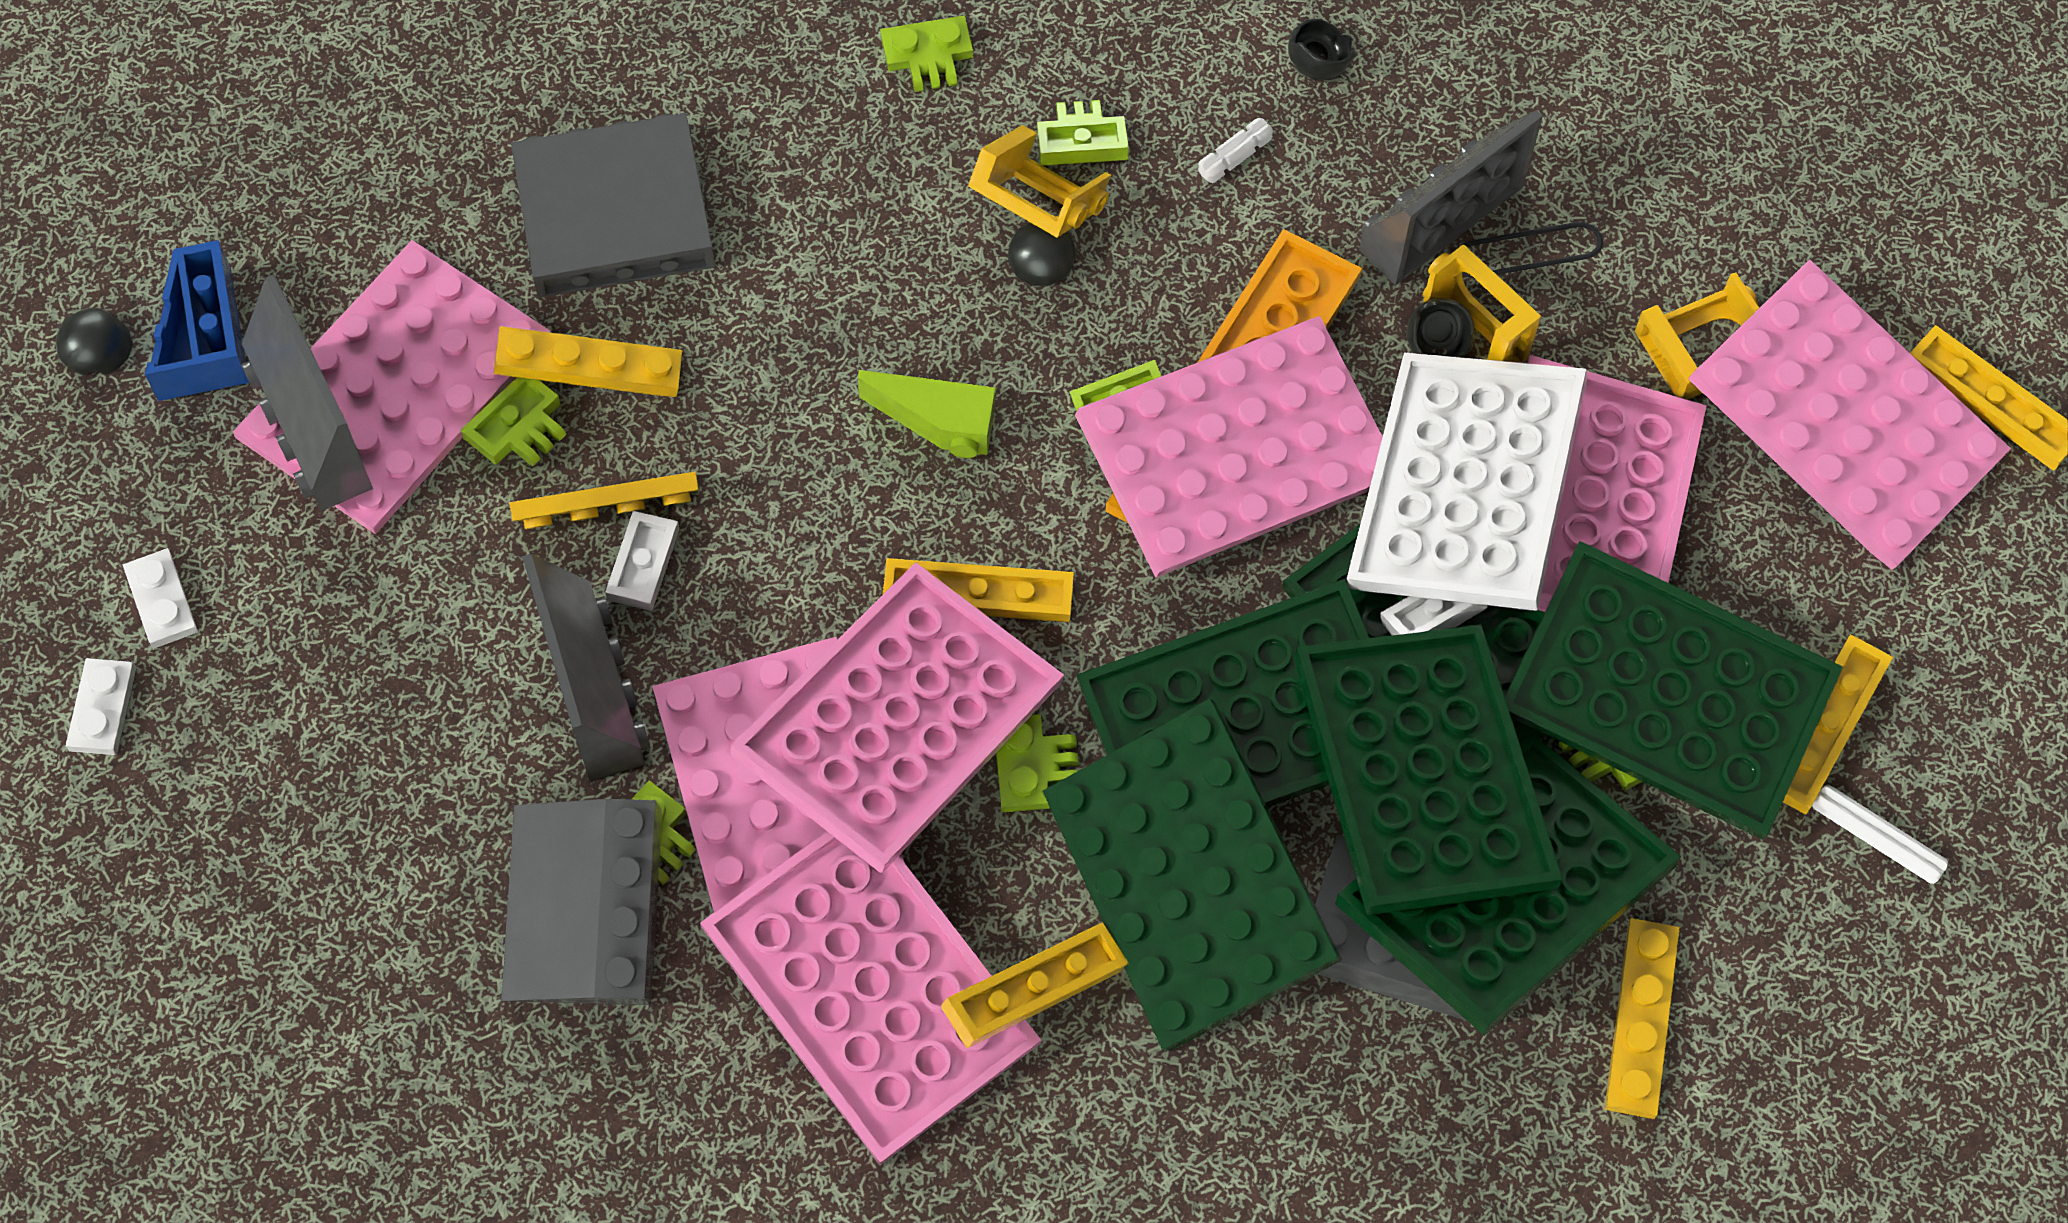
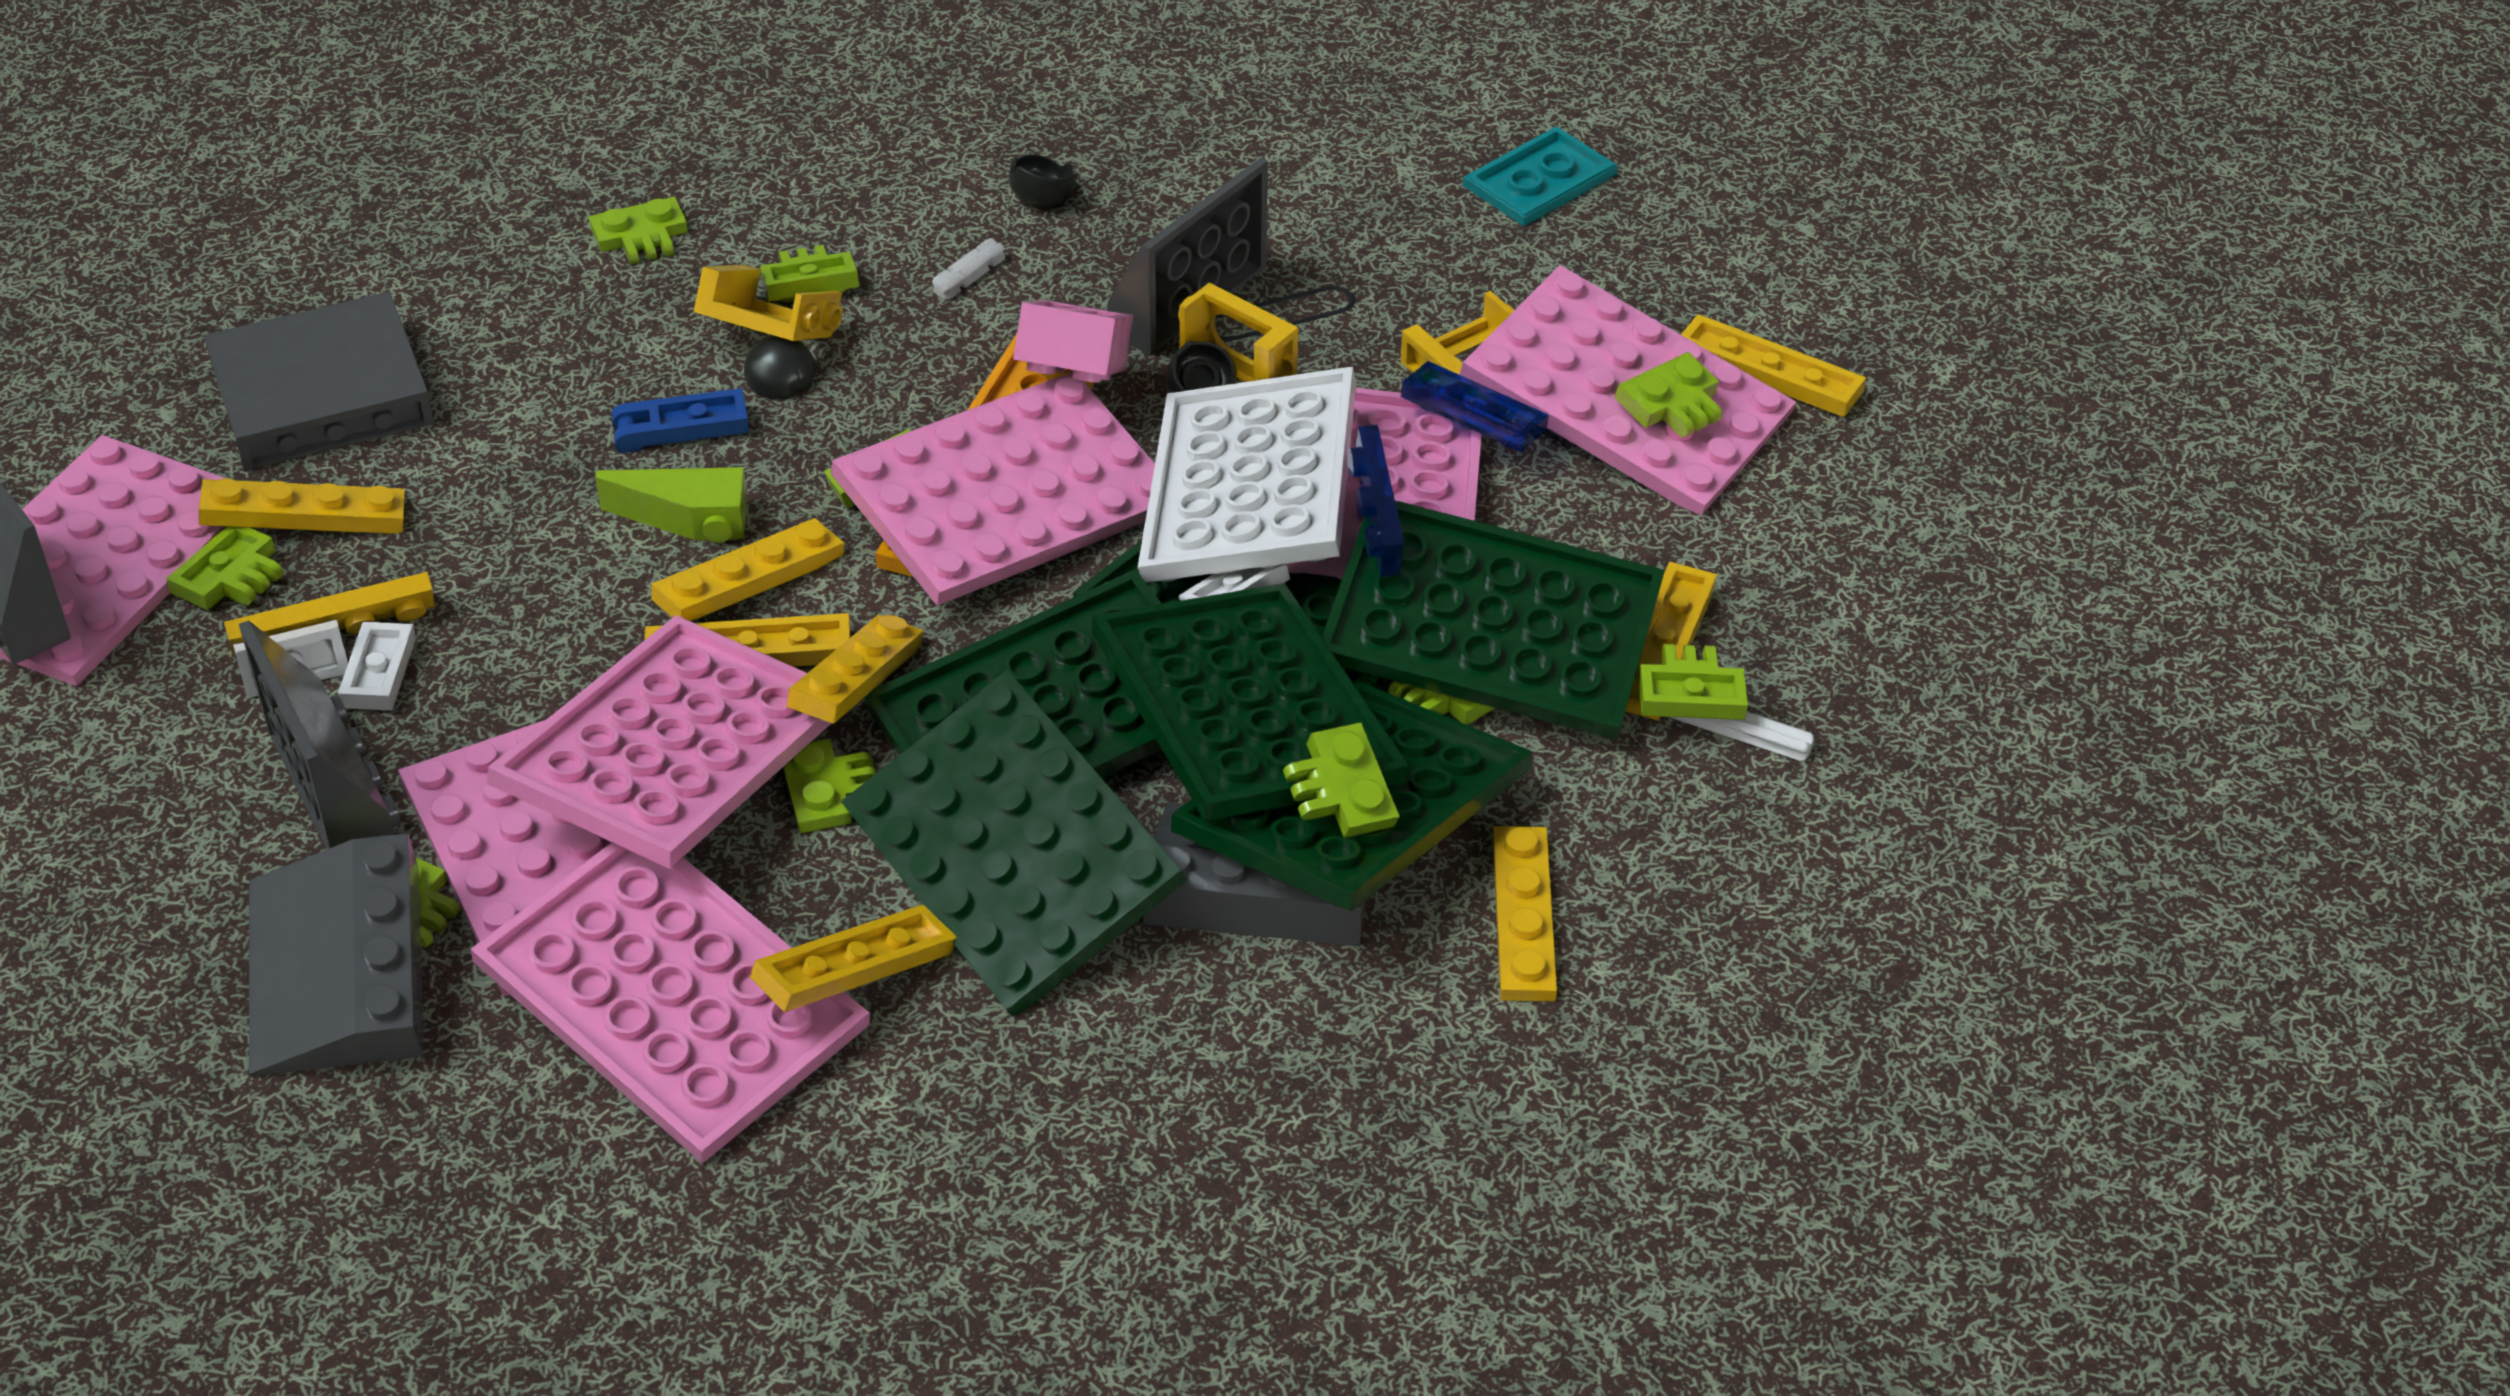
camera: 10 degrees left, 20 degrees down
(570, 541) = (315, 646): none -> white plate
(942, 303) = (679, 419): none -> blue plate
(986, 504) = (747, 571): none -> yellow plate
(1072, 648) = (855, 668): none -> yellow plate
(1323, 289) = (1072, 337): none -> bright pink brick
(1500, 896) = (1343, 781): none -> lime hinge
(1582, 559) = (1376, 501): none -> clear blue plate
(1696, 420) = (1474, 406): none -> clear blue plate
(1811, 109) = (1540, 175): none -> teal tile
(1844, 797) = (1692, 686): none -> lime hinge
(1891, 440) = (1672, 393): none -> lime hinge

